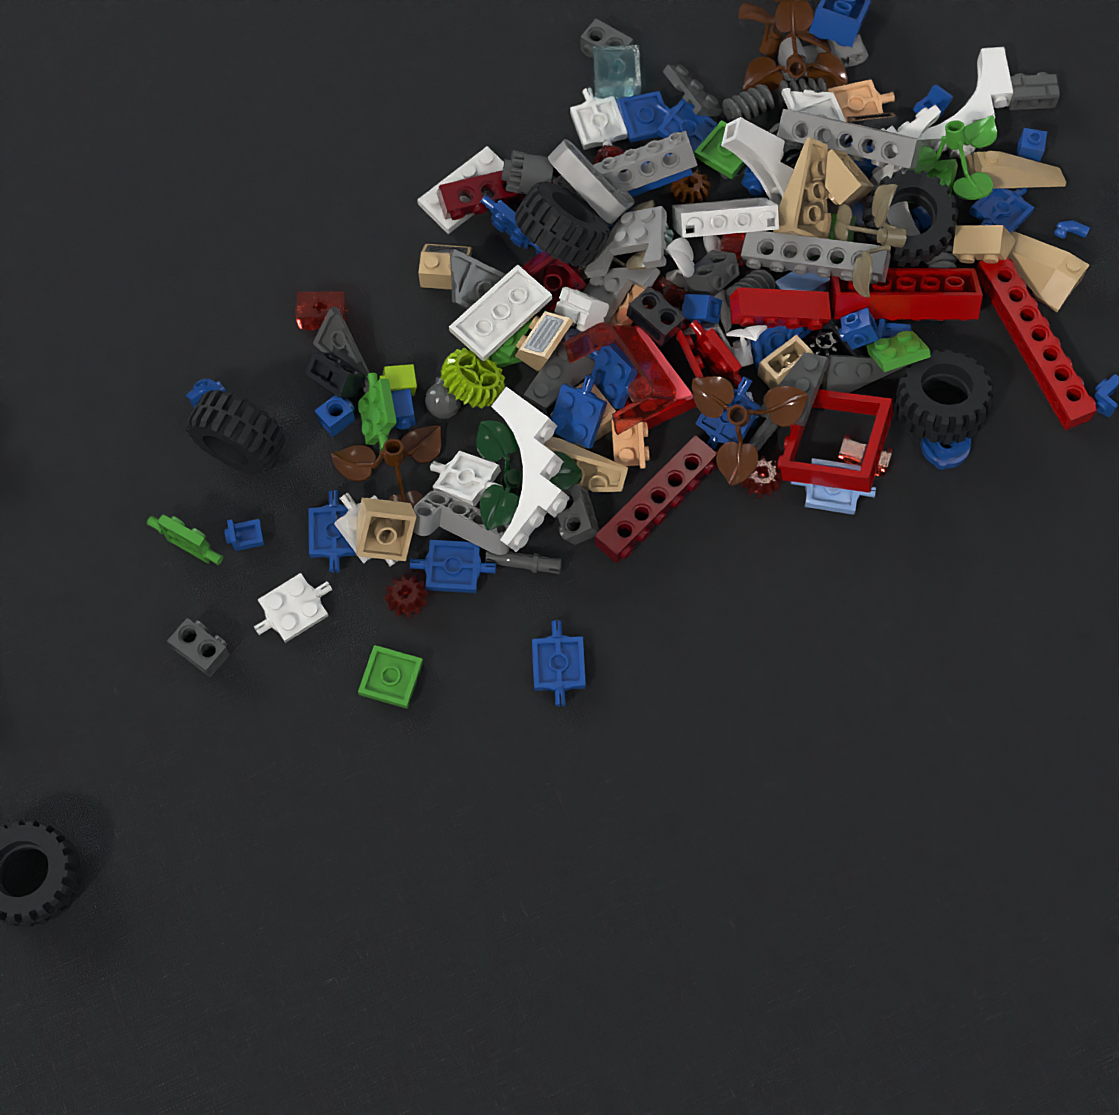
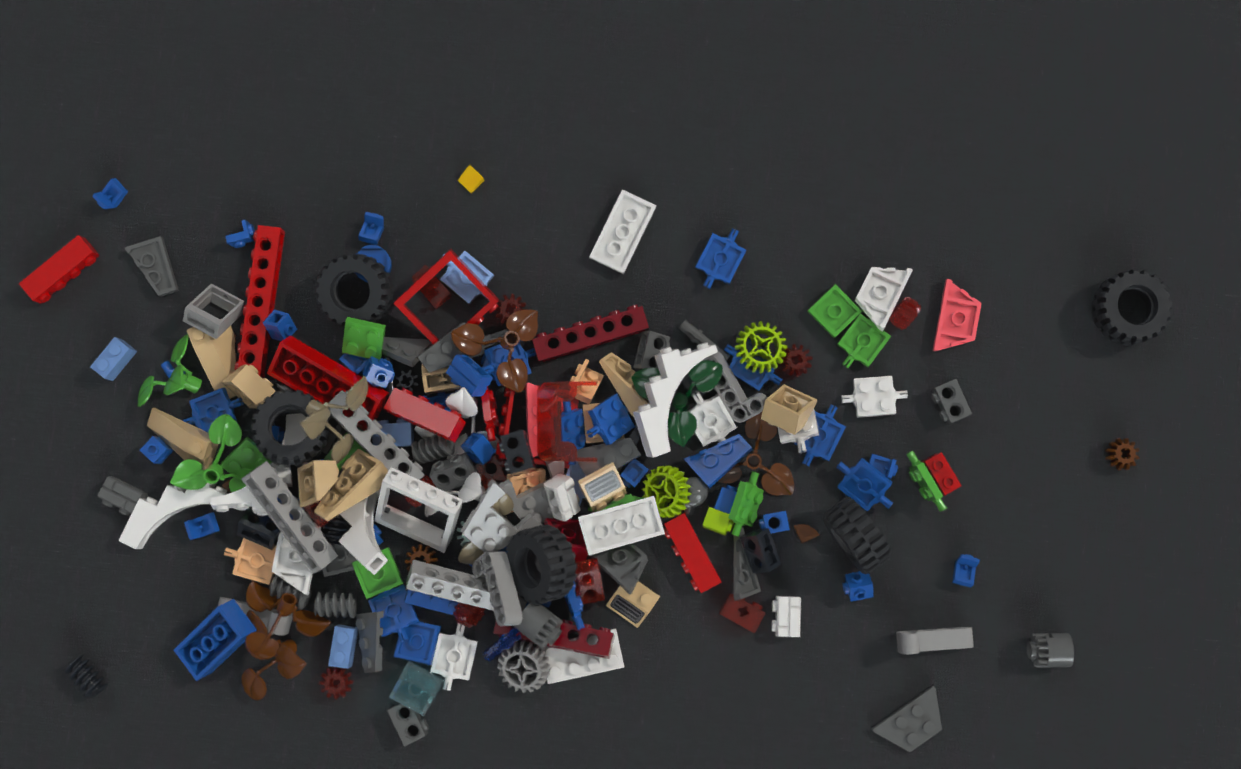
camera: 150 degrees left, 15 degrees up
(80, 303) = (913, 722): none -> dark grey wing
(94, 475) = (965, 570): none -> blue bracket
(97, 388) = (934, 639): none -> light grey beam
(172, 560) = (942, 473): none -> red brick
(239, 748) = (957, 318): none -> coral wing
(254, 503) = (864, 484): none -> blue plate
(270, 331) = (787, 616): none -> white brick
(296, 426) = (805, 532): none -> reddish brown tile
(305, 714) = (905, 313): none -> clear red gear
(338, 662) = (862, 341): none -> bright green plate
(345, 725) = (881, 293): none -> white wing
(407, 337) = (692, 553): none -> red brick
(434, 441) = (716, 461): none -> blue wing
(463, 586) = (757, 341): none -> lime gear
(502, 251) = (589, 581): none -> clear red brick
(520, 137) = (516, 674): none -> light grey gear
(520, 377) = (633, 473): none -> blue bracket
(548, 147) = (505, 642): none -> clear blue pin
(690, 632) = (622, 231): none -> white plate
(700, 42) = (337, 689): none -> clear red gear
(715, 73) = (343, 646): none -> medium blue brick
(758, 364) = (469, 374): none -> blue brick
(901, 596) = (471, 179): none -> yellow slope
(972, 478) = (372, 228): none -> blue bracket
(996, 323) = (279, 325): none -> blue brick
(1051, 222) = (177, 379): none -> bright green plant
(1091, 274) = (206, 322): none -> light grey window

